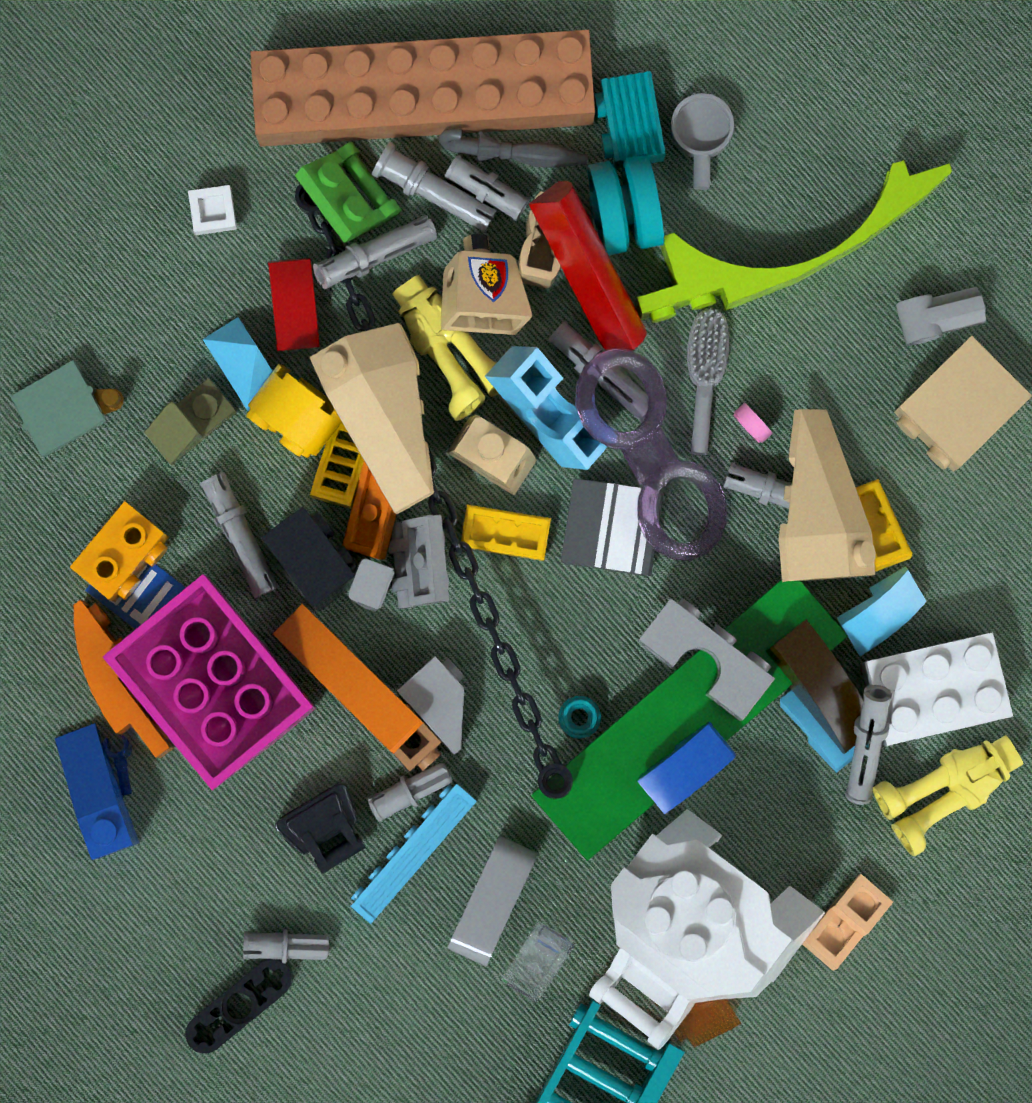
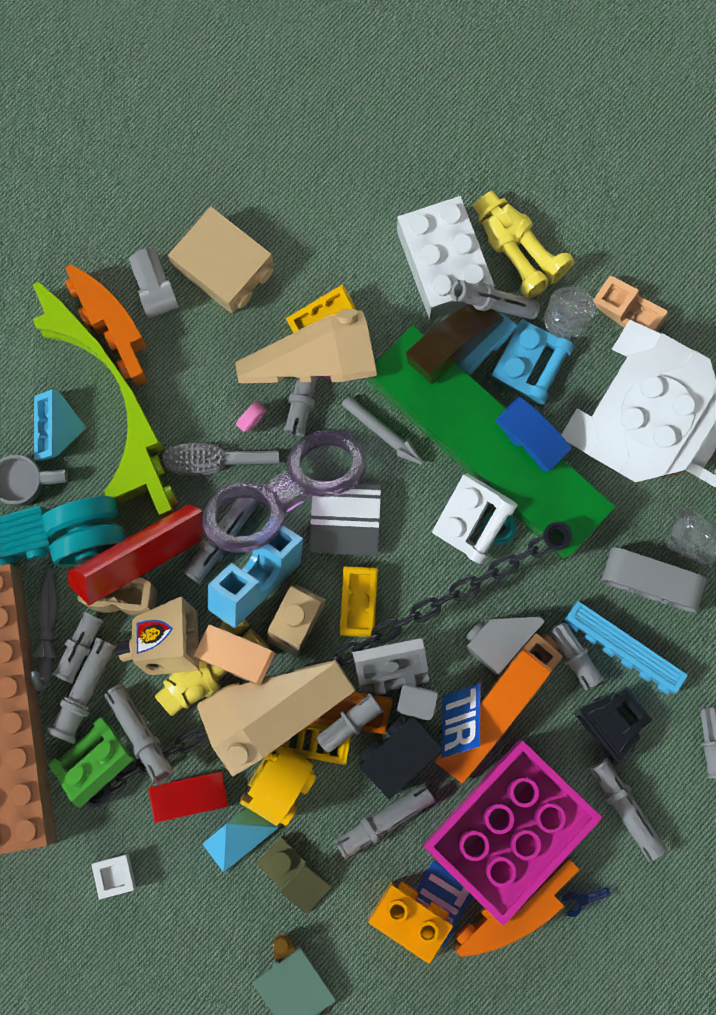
camera: 90 degrees left, 5 degrees down
(95, 793) = (614, 918): blue slope -> none
(235, 821) = (632, 816): none -> light grey pin
(346, 638) = (461, 721): none -> blue sticker
(357, 504) = (349, 723): none -> light grey axle
(453, 372) = (234, 654): none -> light nougat slope
(600, 674) = (464, 513): none -> white plate
(729, 576) = (404, 448): none -> light grey piece
(739, 678) = (458, 401): light grey arch -> none
(767, 178) = (54, 425): none -> medium azure slope
(796, 774) = (522, 357): none -> medium azure plate
(844, 840) = (568, 313): none -> clear wheel
(890, 607) = (395, 306): medium azure slope -> none
(908, 251) = (111, 319): none -> orange slope

